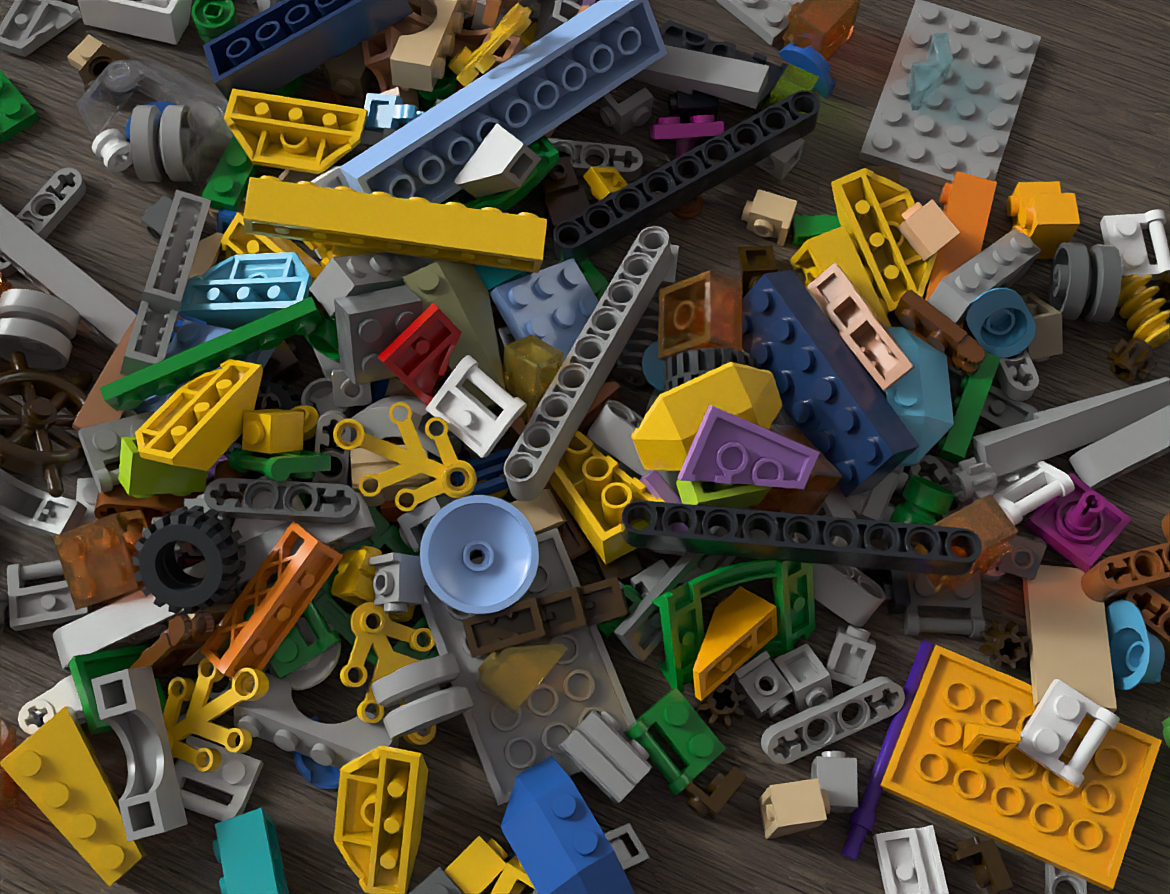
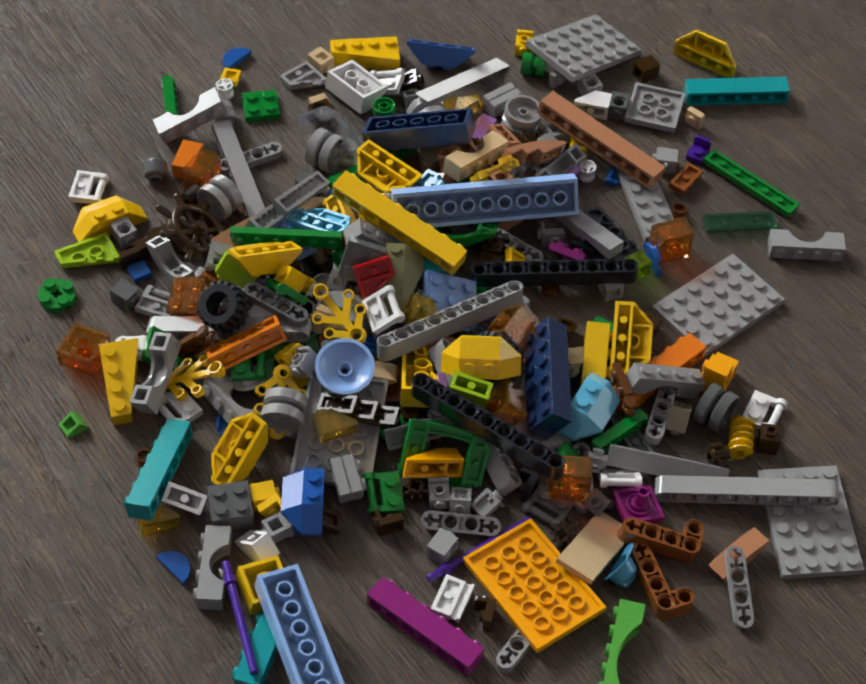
camera: 30 degrees right, 15 degrees down
(113, 149) = (301, 142): white wheel -> none
(497, 165) = (462, 221): slope -> none
(745, 453) = (482, 376): medium lavender wing -> none
(769, 215) = (585, 310): tan brick -> none
(793, 807) = (414, 538): tan slope -> none
(861, 327) = (582, 363): slope -> none
(927, 228) = (648, 343): light nougat brick -> none
(929, 76) = (708, 287): clear light blue slope -> none
(989, 740) = (521, 557): light orange slope -> none
(1001, 322) = (655, 398): dark azure piece -> none
(1055, 724) = (558, 569): white plate -> none

